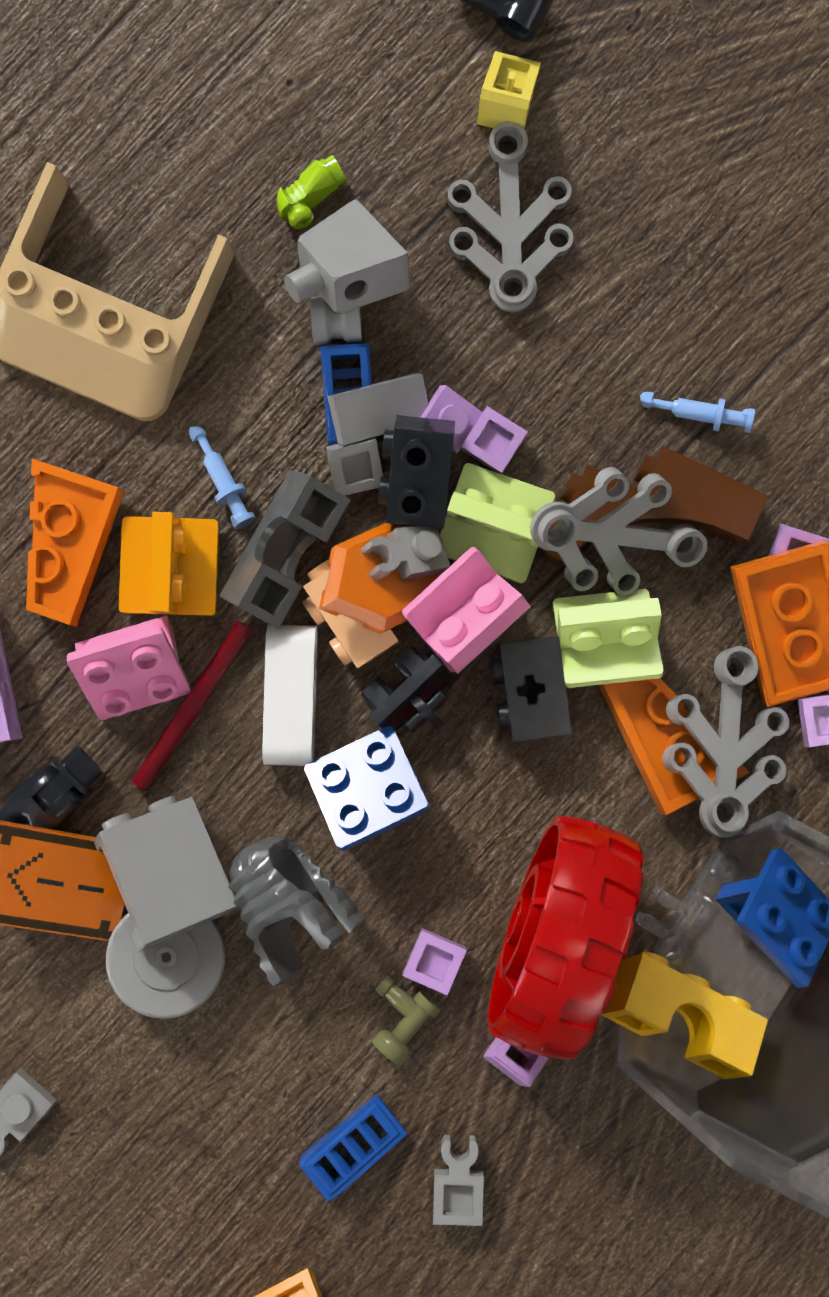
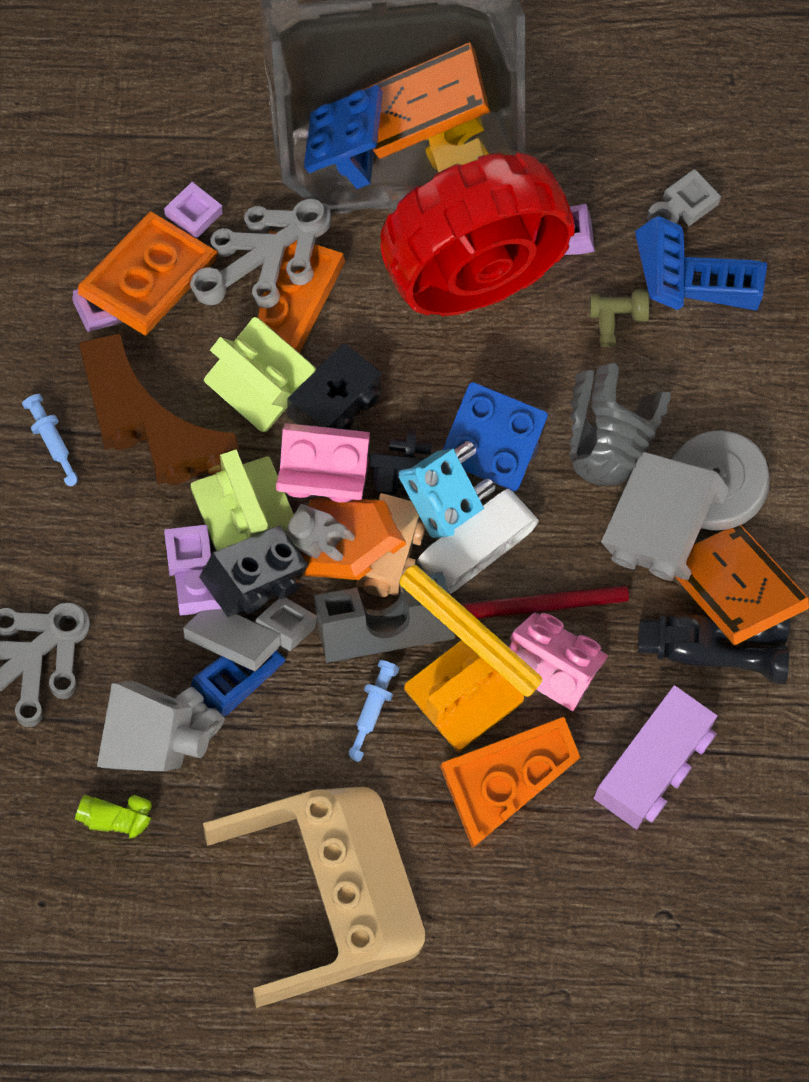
camera: 140 degrees left, 20 degrees down
(193, 594) = (470, 630): none -> yellow axle
(347, 692) = (443, 490): none -> medium azure piece
(413, 1106) = (663, 260): none -> blue slope
(434, 961) = (563, 321): lavender plate -> none
(613, 531) = (217, 439): light grey plant -> none
(753, 1027) = (430, 99): none -> orange tile

